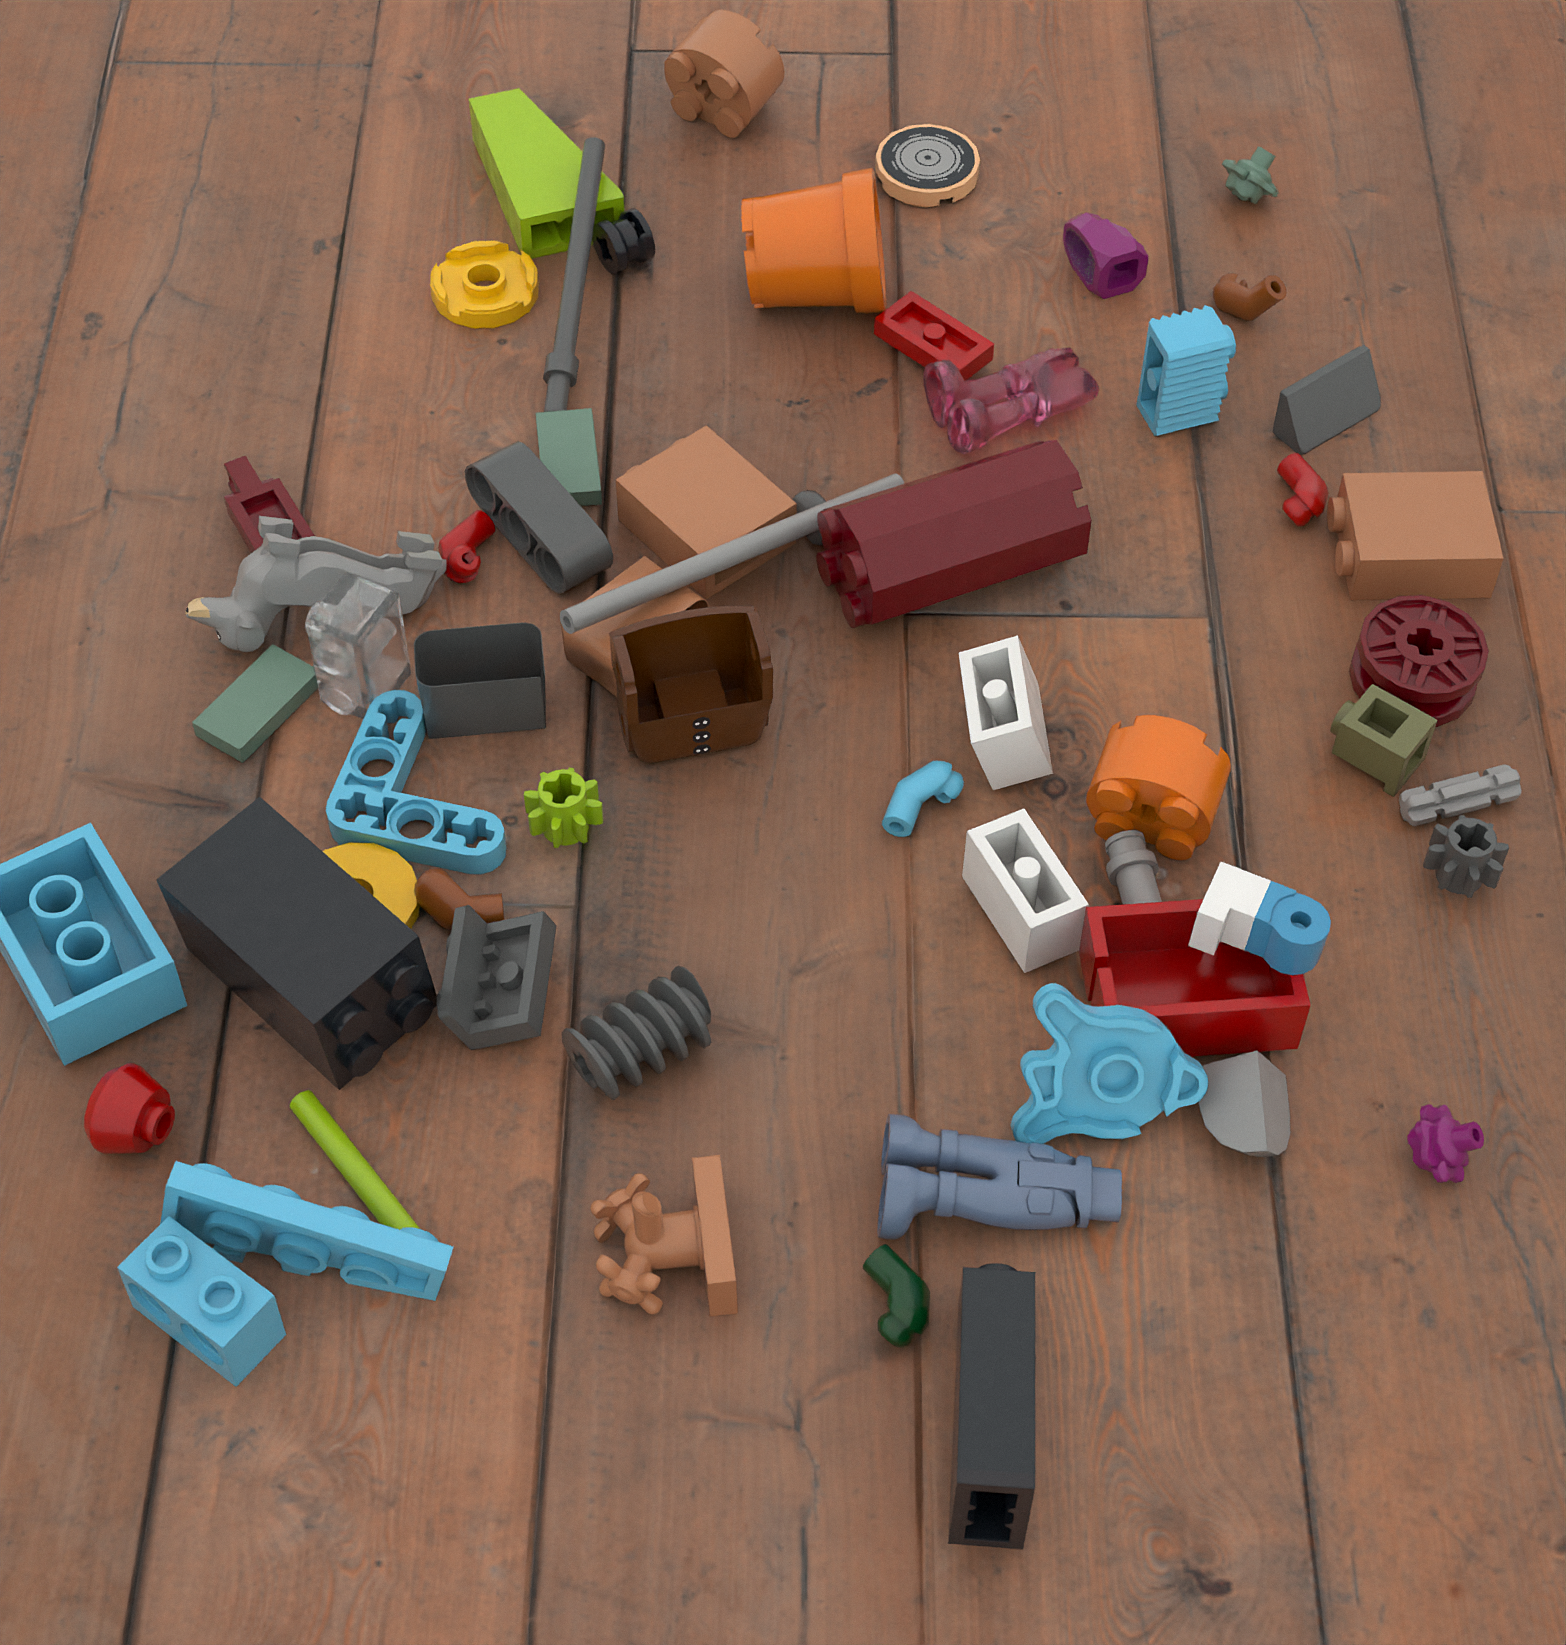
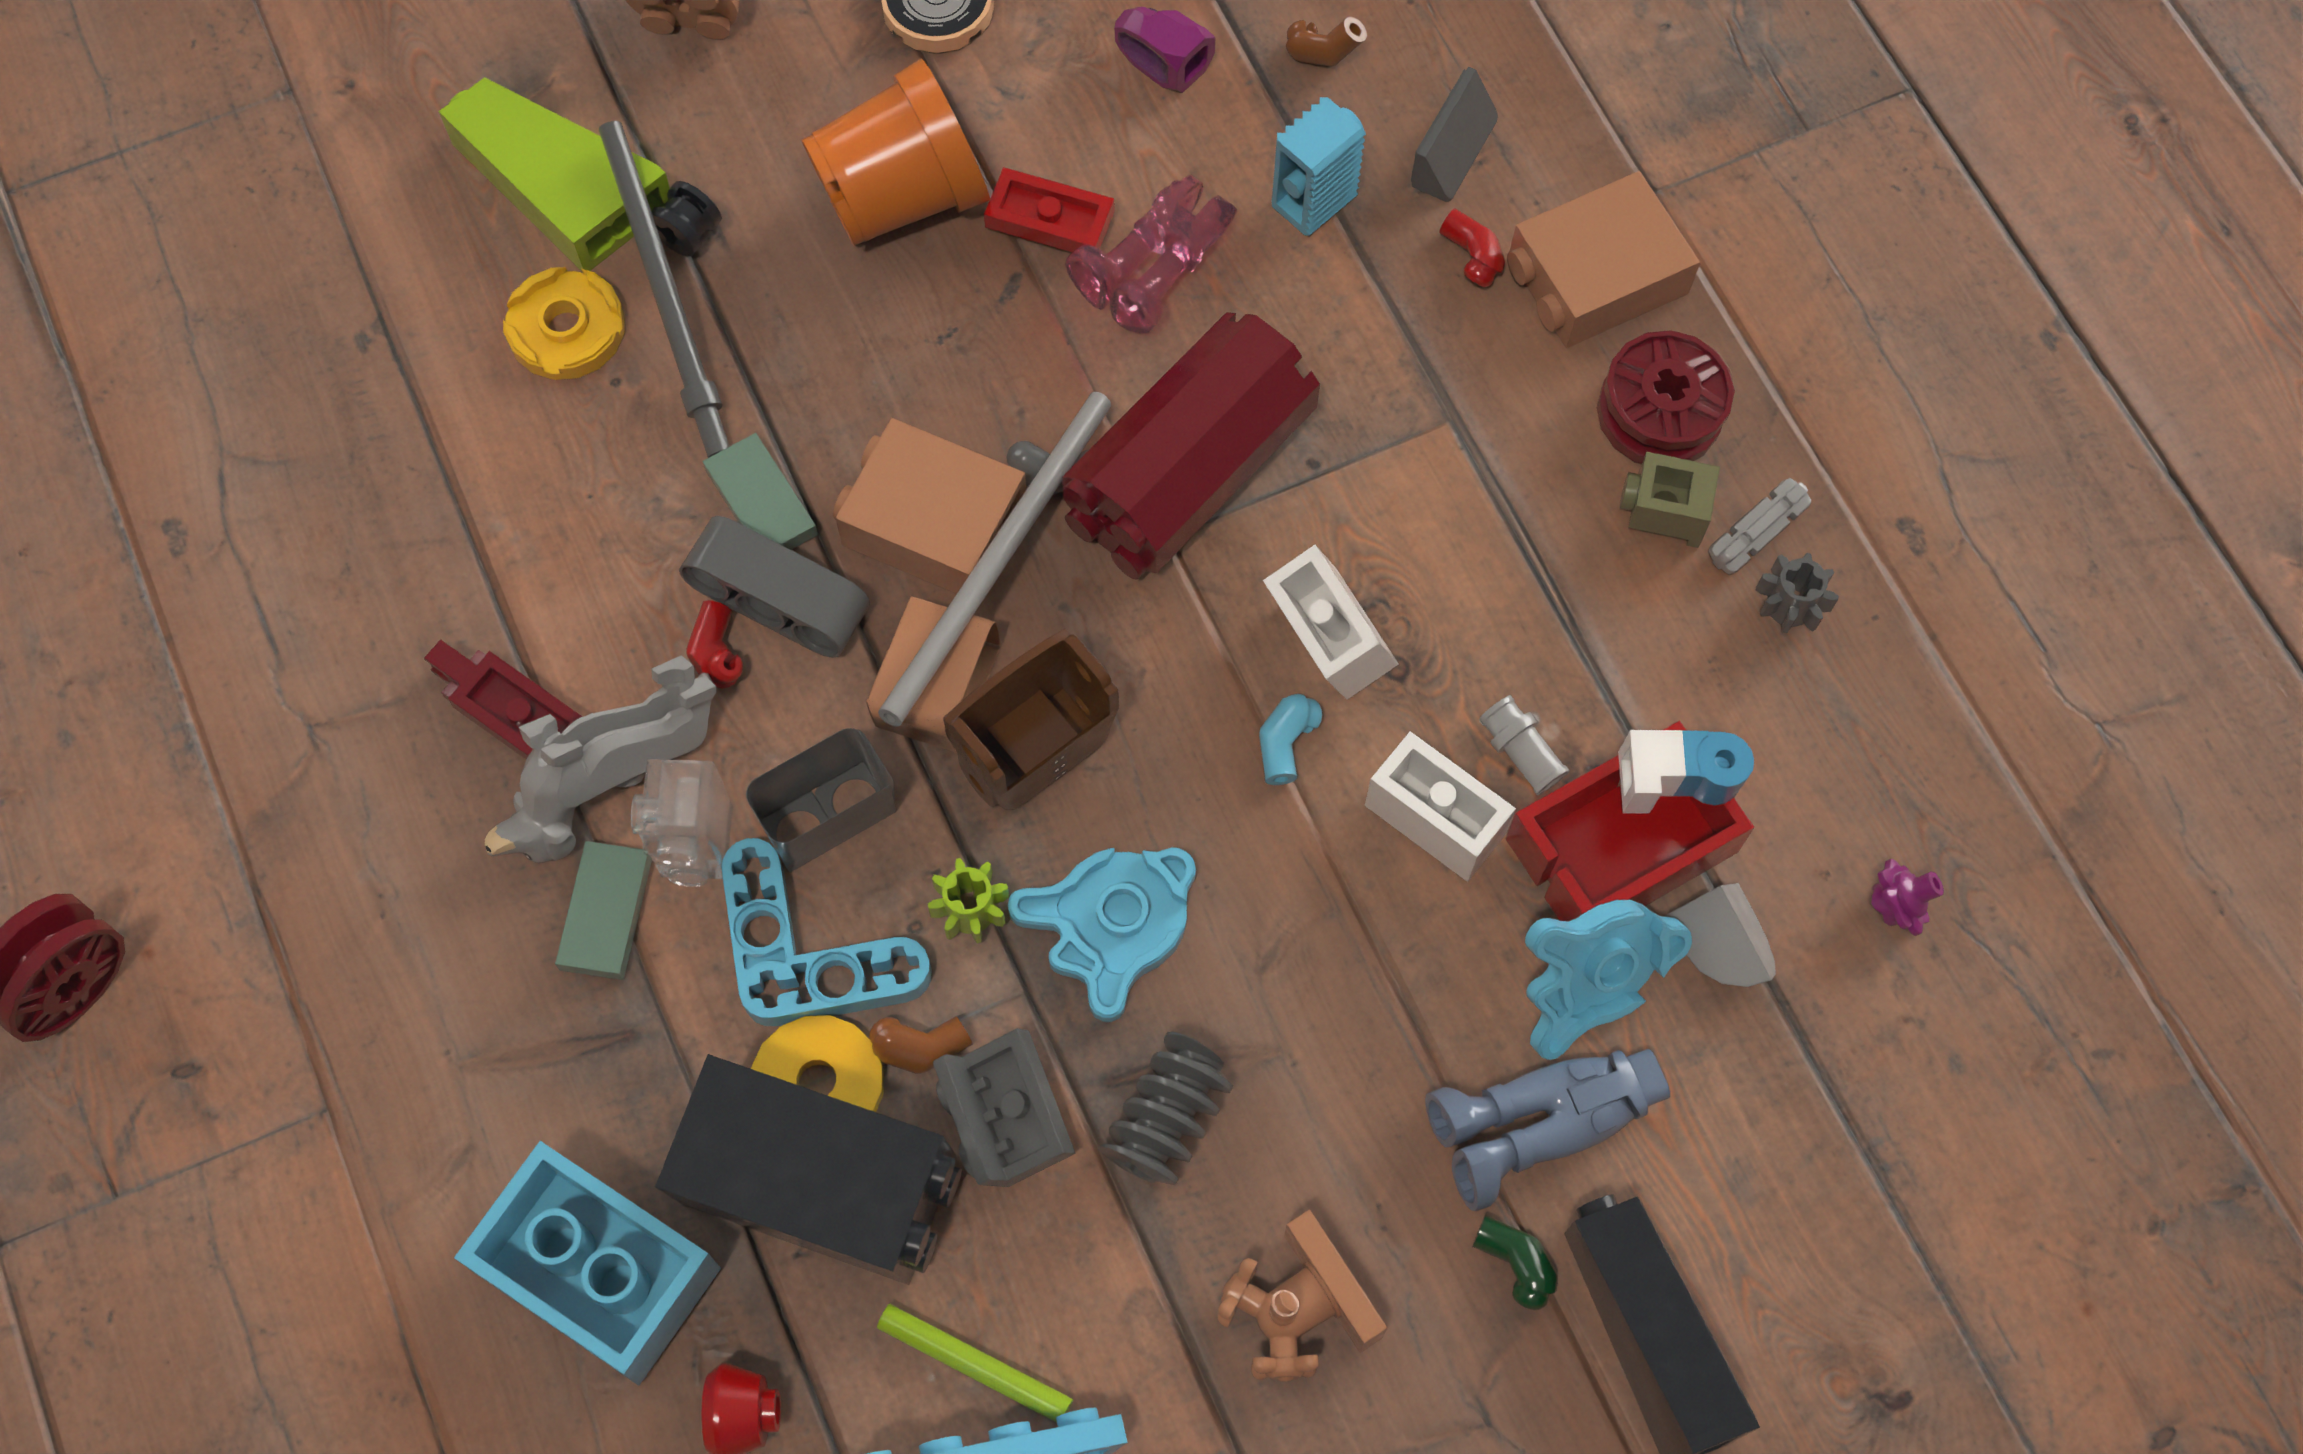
camera: 25 degrees left, 15 degrees up
(683, 877) = (1113, 920): none -> medium azure tile
(1158, 783) = (1506, 644): orange brick -> none

